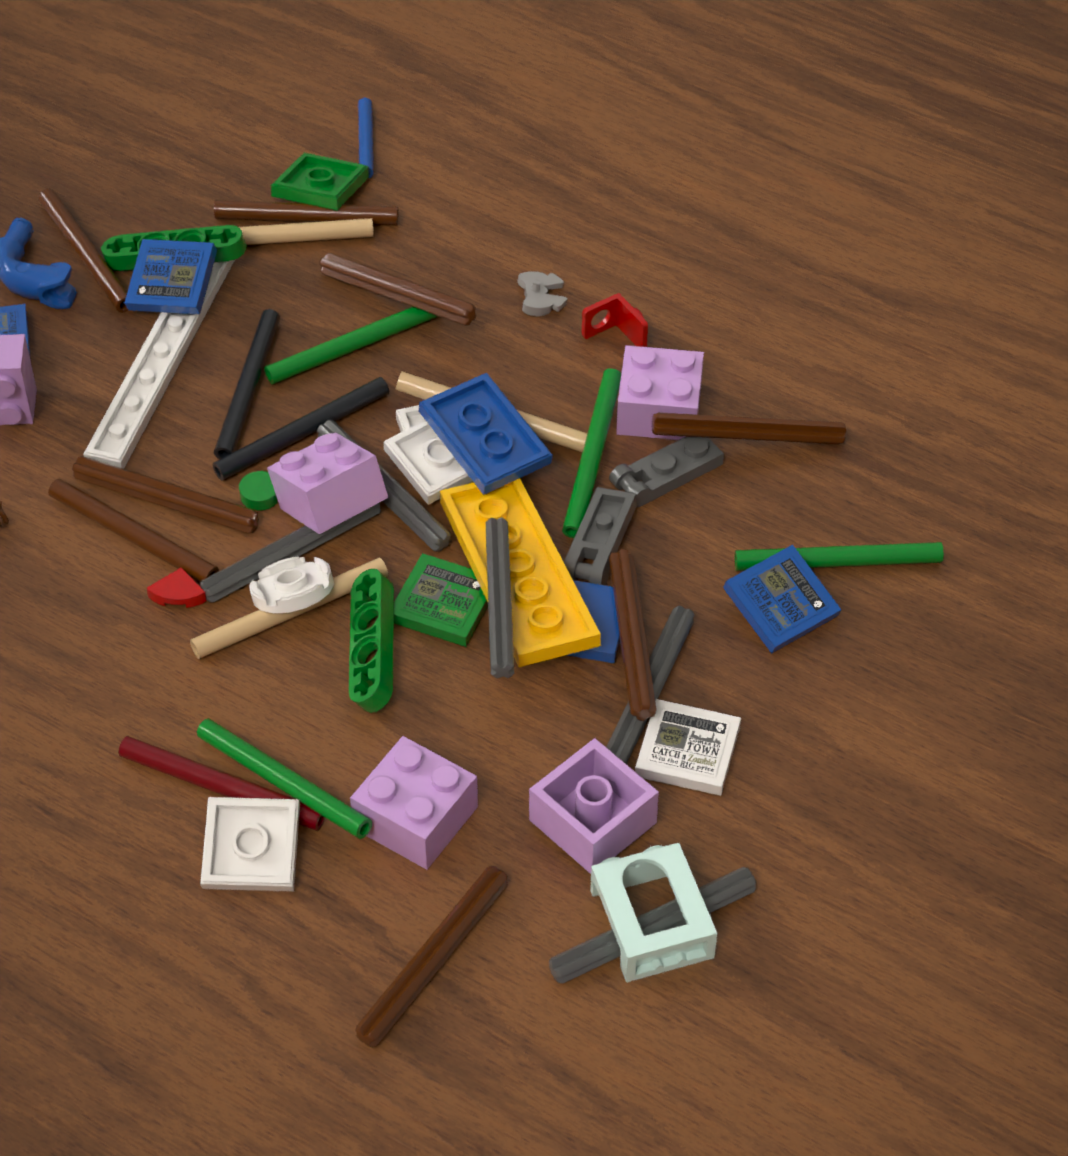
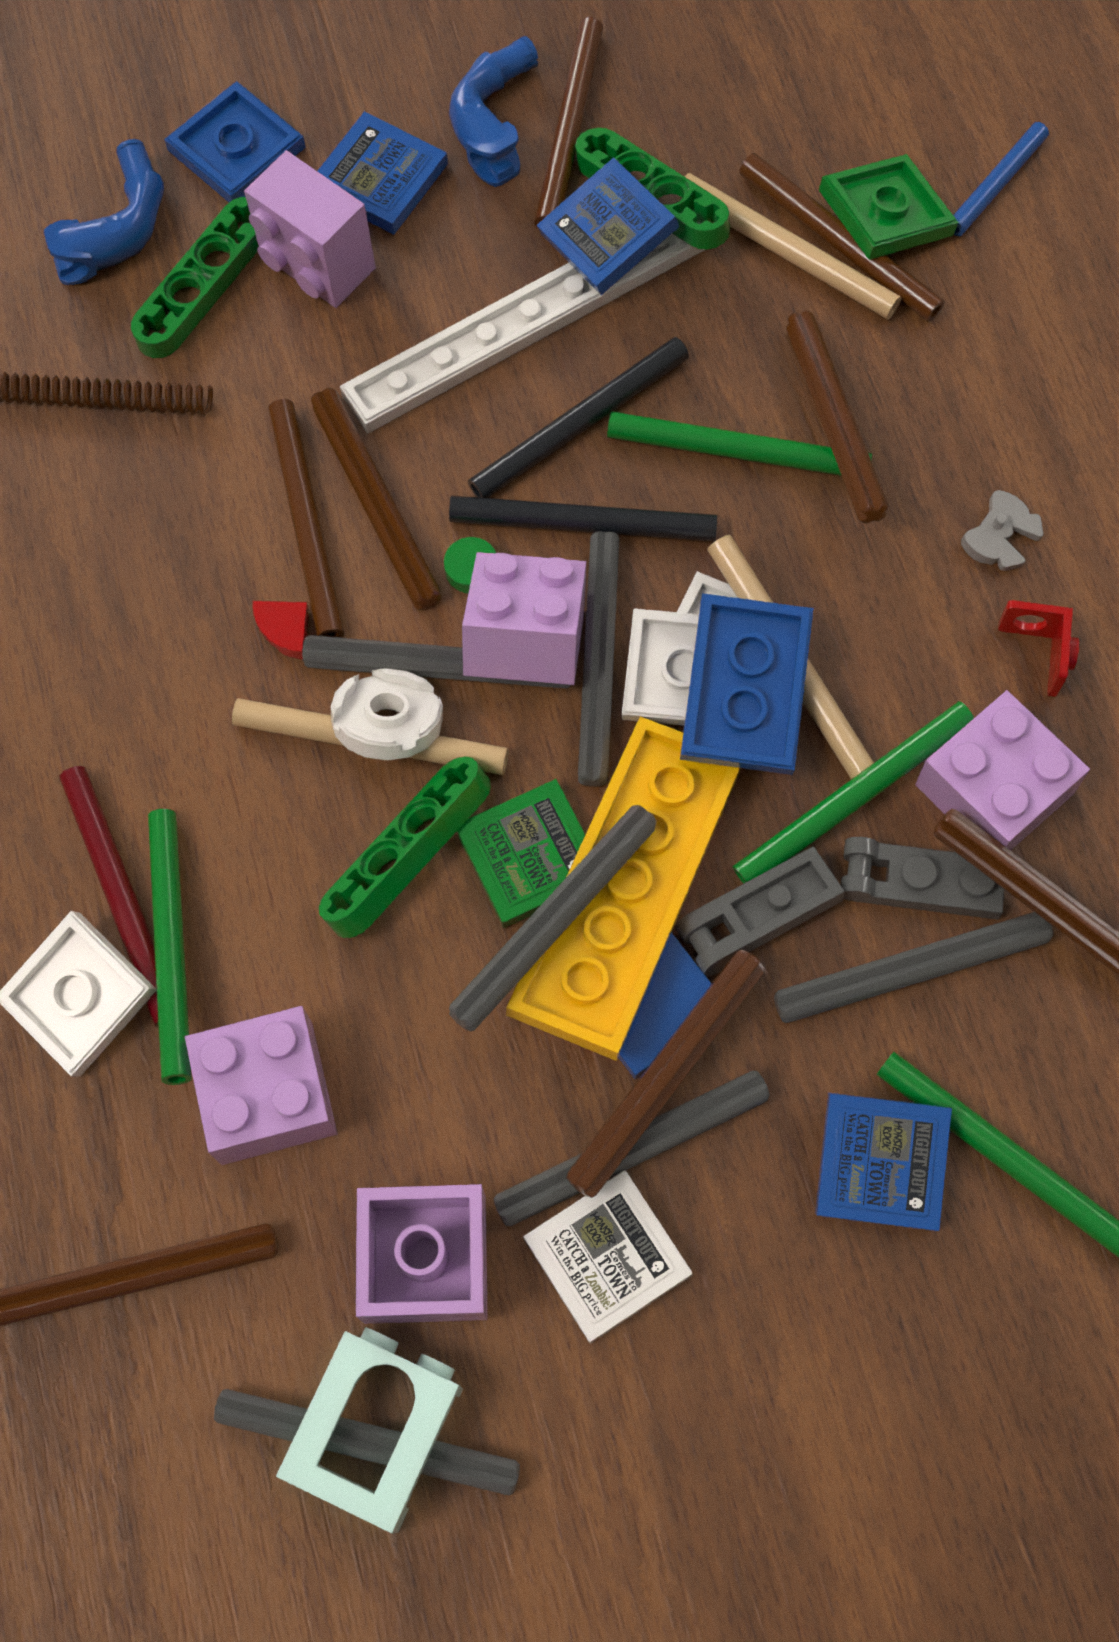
camera: 45 degrees right, 20 degrees up
(702, 510) = (912, 967): none -> dark grey axle

